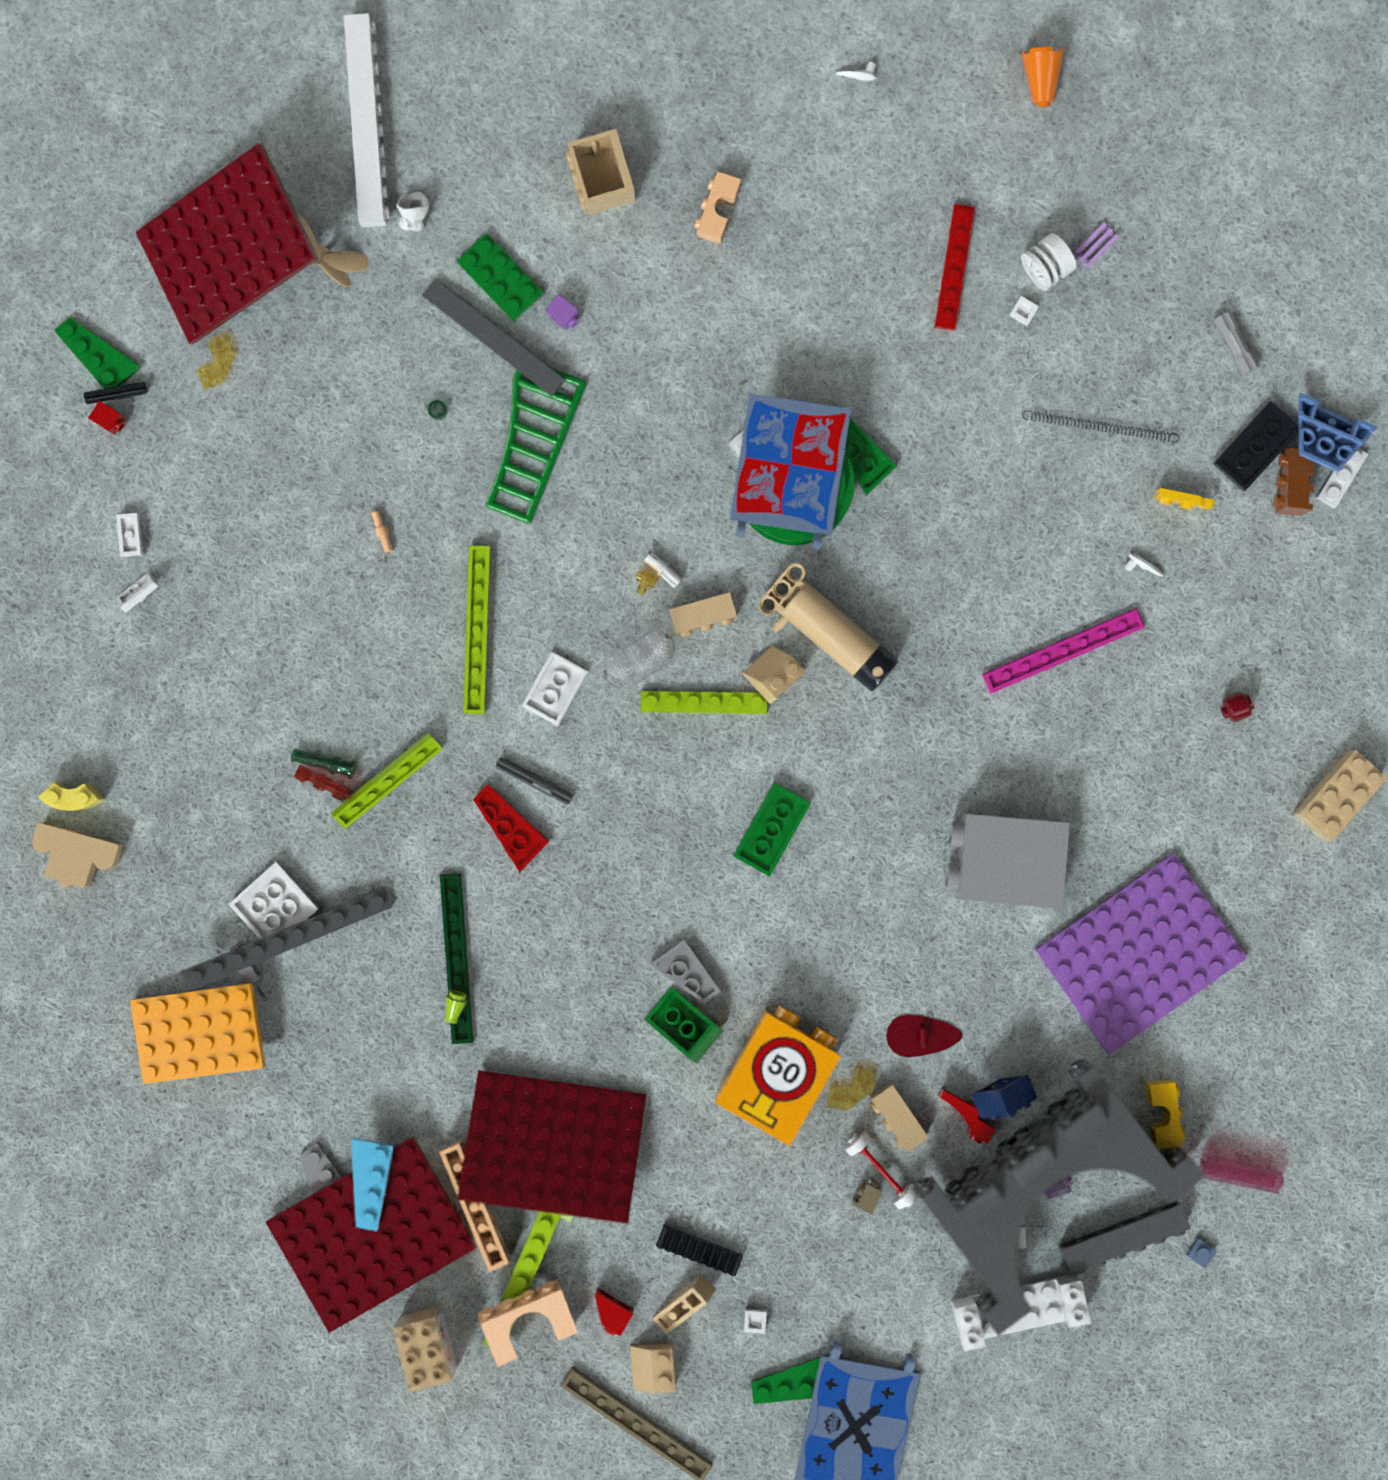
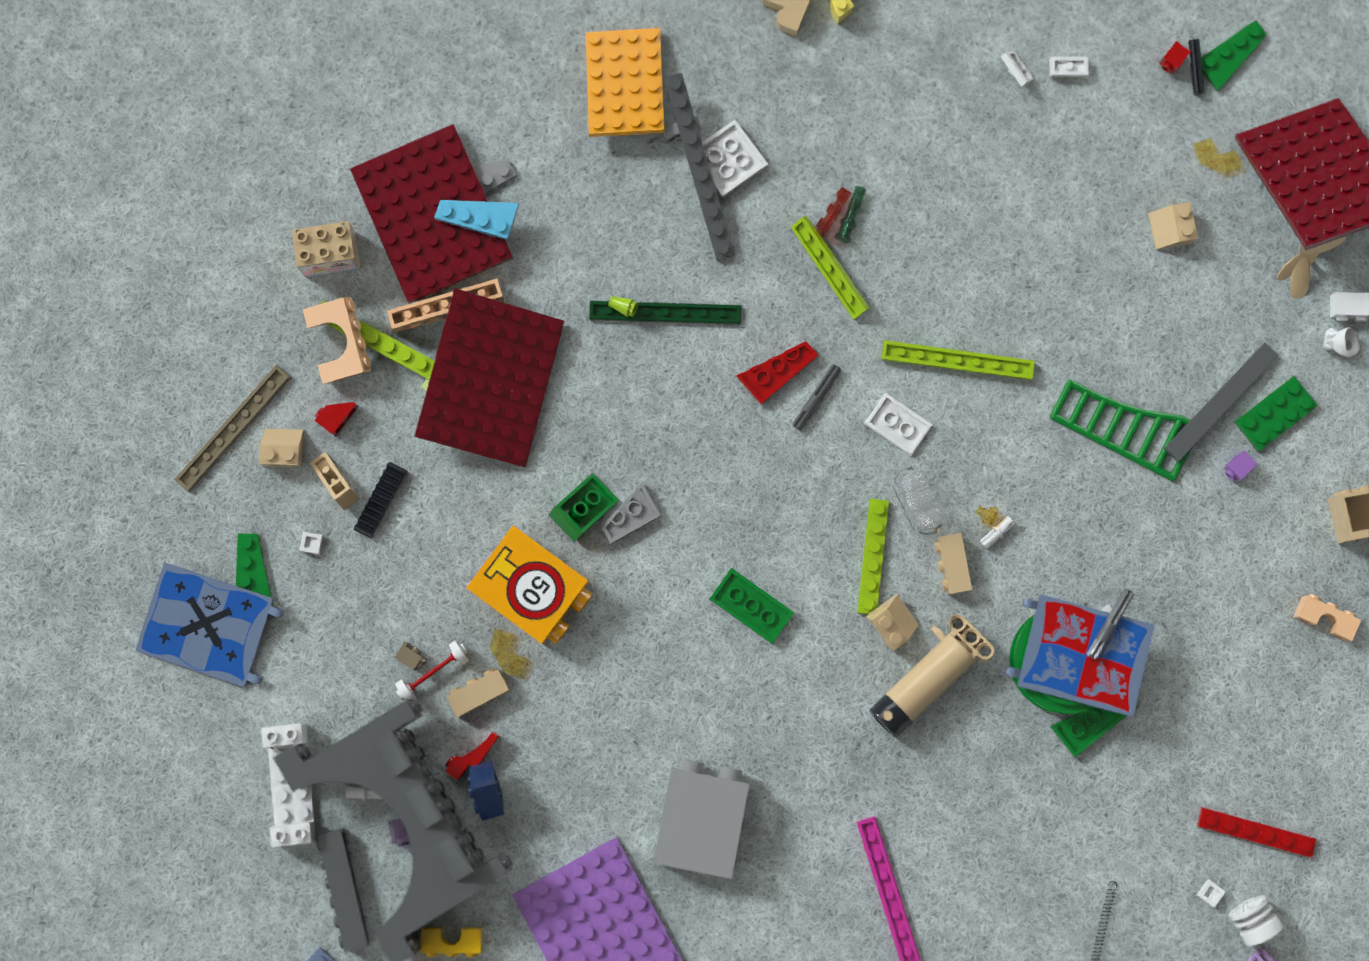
camera: 90 degrees right, 5 degrees down
(301, 405) = (1173, 226): none -> tan slope
(382, 531) = (1053, 285): light nougat bar -> none
(439, 416) = (1164, 343): clear green bush -> none
(754, 440) = (1110, 624): none -> dark grey axle
(920, 1036) = (549, 722): dark red shield -> none

